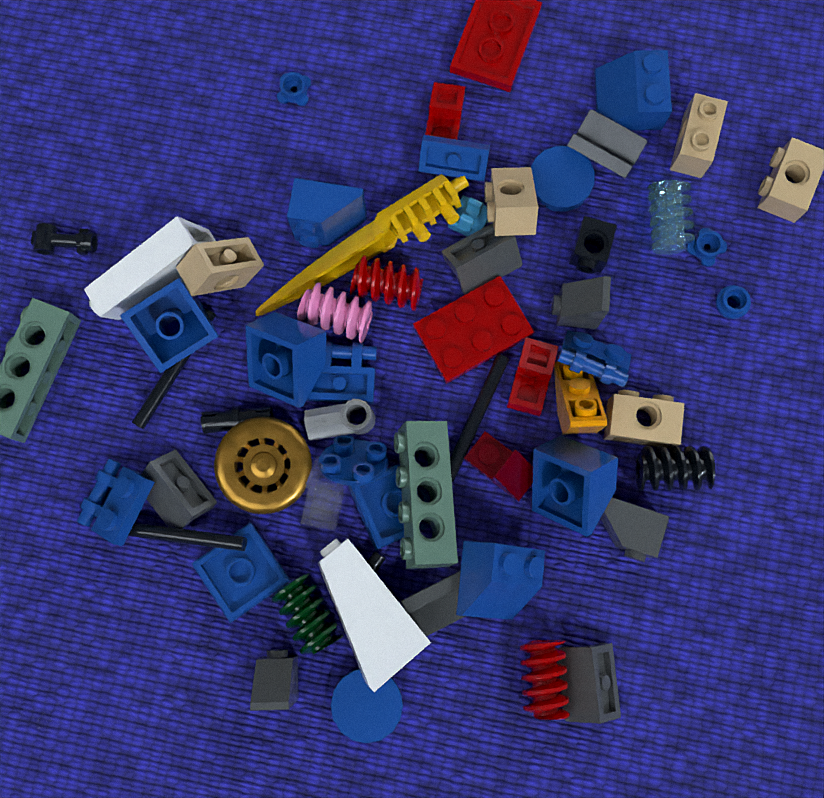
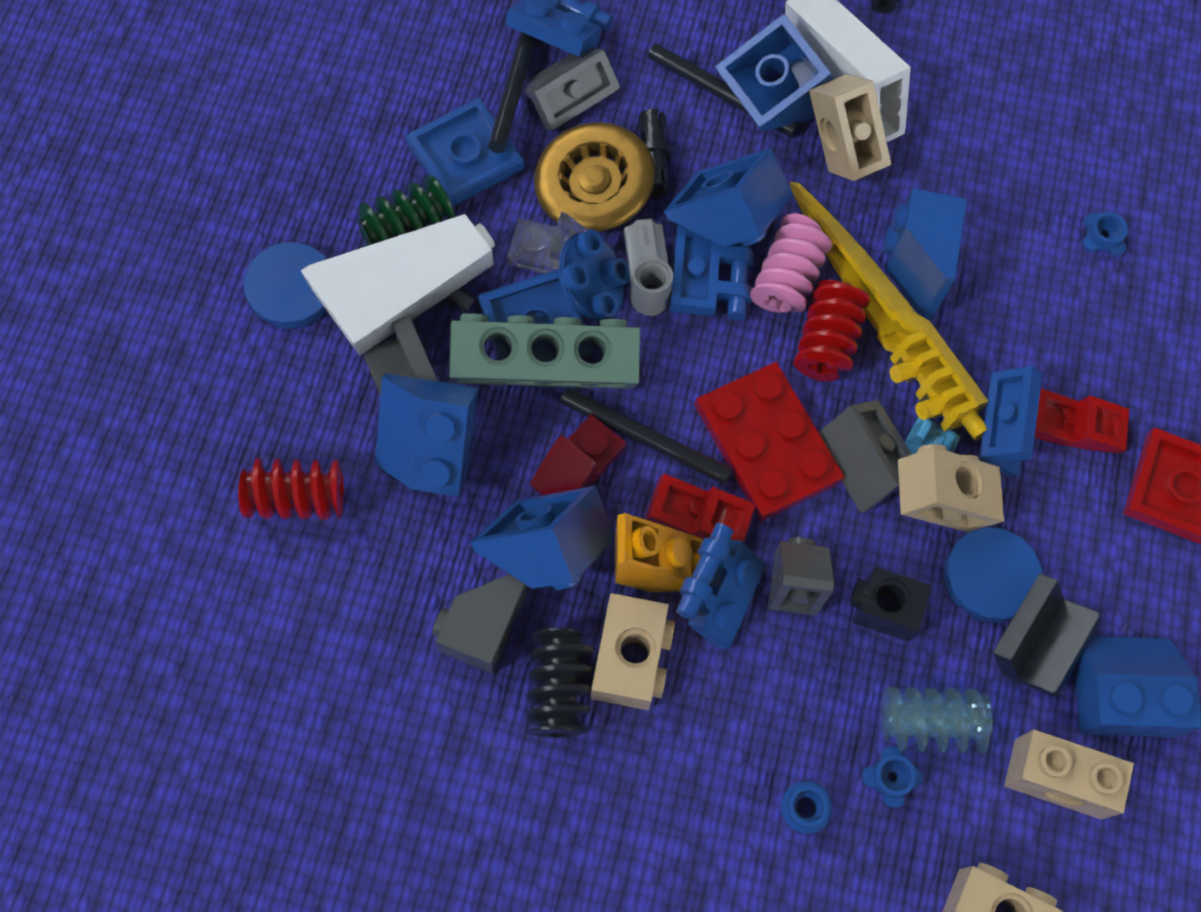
camera: 85 degrees right, 10 degrees down
(275, 681) = (327, 176): dark grey slope -> none
(591, 684) = (280, 553): dark grey panel -> none

